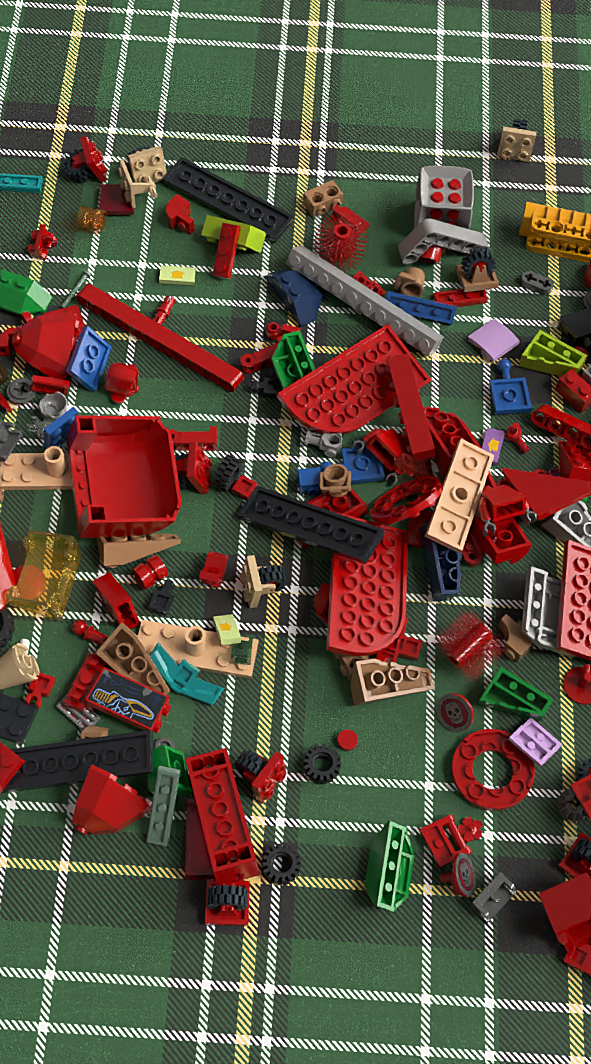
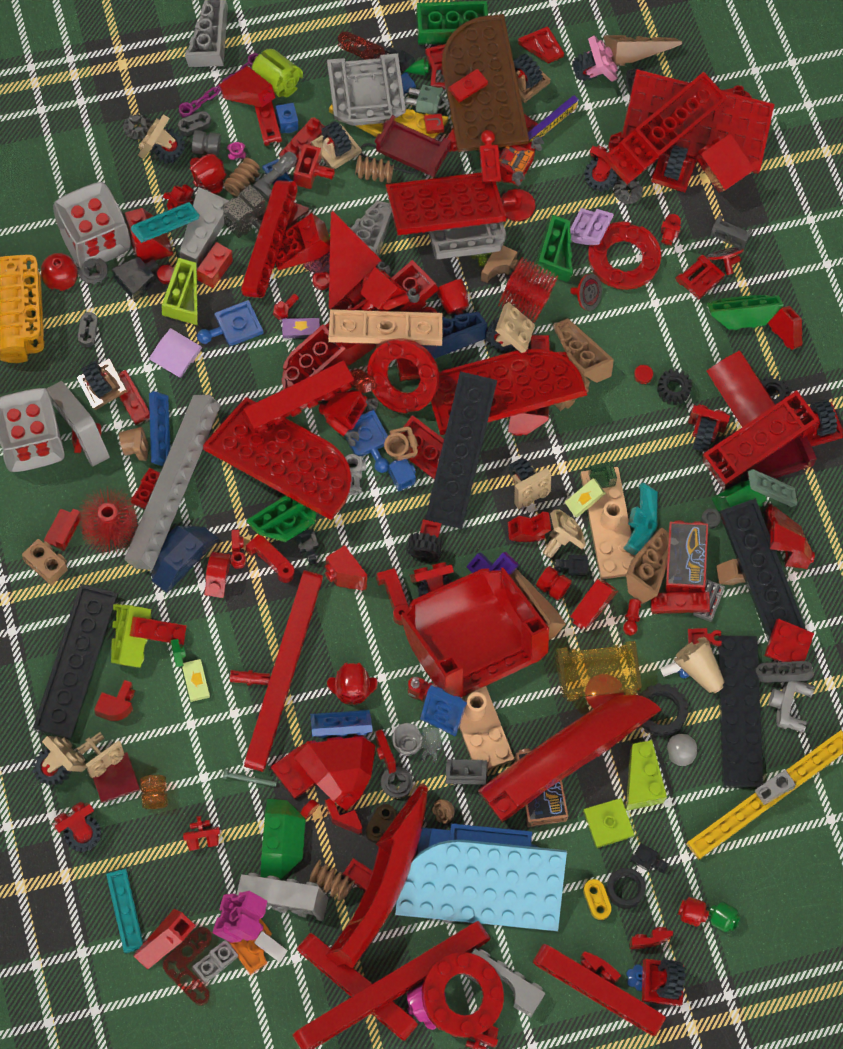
camera: 110 degrees left, 5 degrees up
(181, 528) = (504, 561): none -> dark purple plate
(199, 599) = (564, 530): none -> tan piece
(204, 263) = (178, 652): none -> green plate
(228, 402) = (345, 570): none -> red slope
(267, 309) = (216, 574): none -> red brick
(291, 827) = (740, 388): none -> red slope
(352, 910) = (788, 327): none -> red slope
(428, 615) = (510, 330): none -> tan plate
(470, 830) = (680, 262): red plant -> none
(485, 582) = (454, 297): none -> red helmet
(508, 823) = (670, 229): none -> red hips

